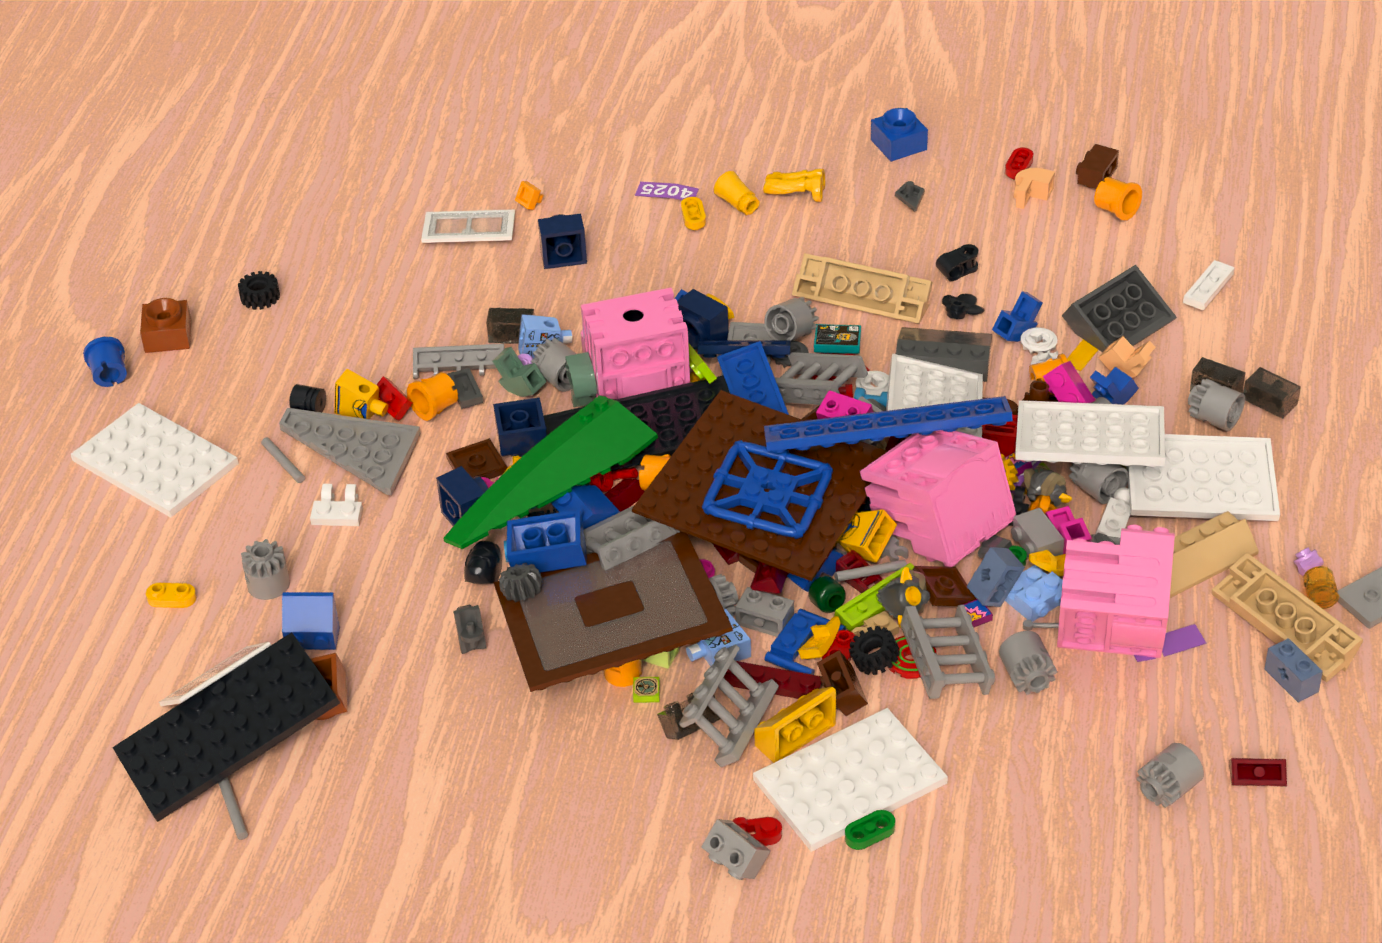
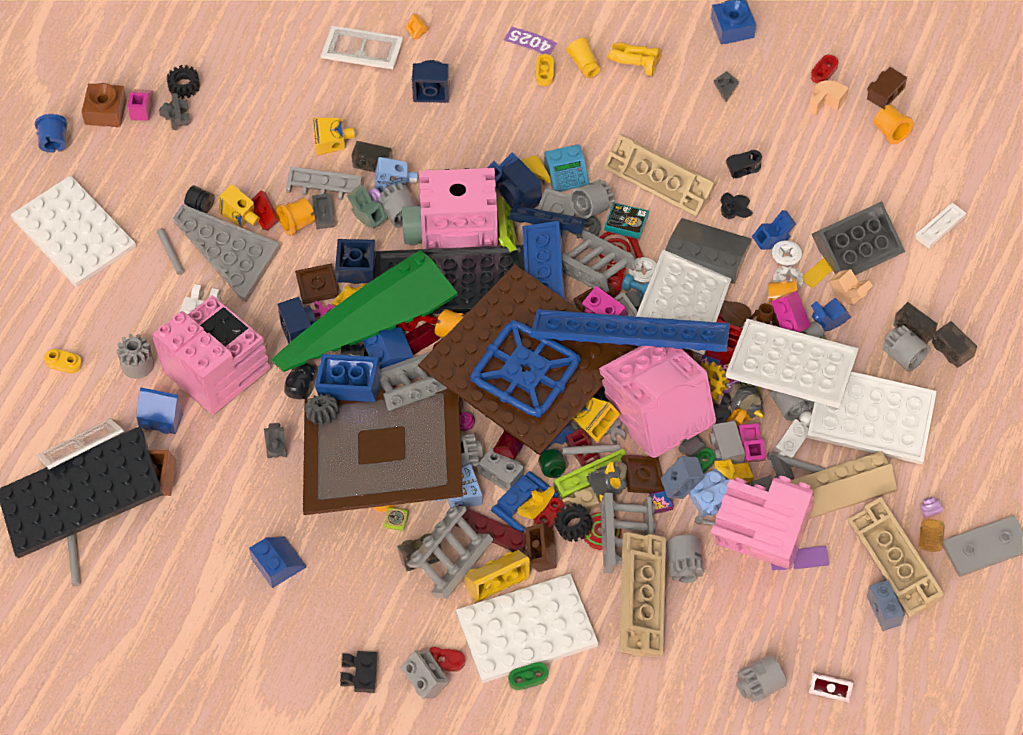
camera: 10 degrees right, 15 degrees up
(211, 319) = (140, 104): none -> dark pink slope
(257, 320) = (172, 112): none -> dark grey hips
(363, 545) = (210, 353): none -> bright pink piece
(453, 312) = (330, 135): none -> yellow torso
(501, 760) = (276, 559): none -> blue slope
(654, 862) = (365, 672): none -> black plate
(748, 297) = (566, 168): none -> dark azure slope
(989, 710) = (642, 595): none -> tan slope

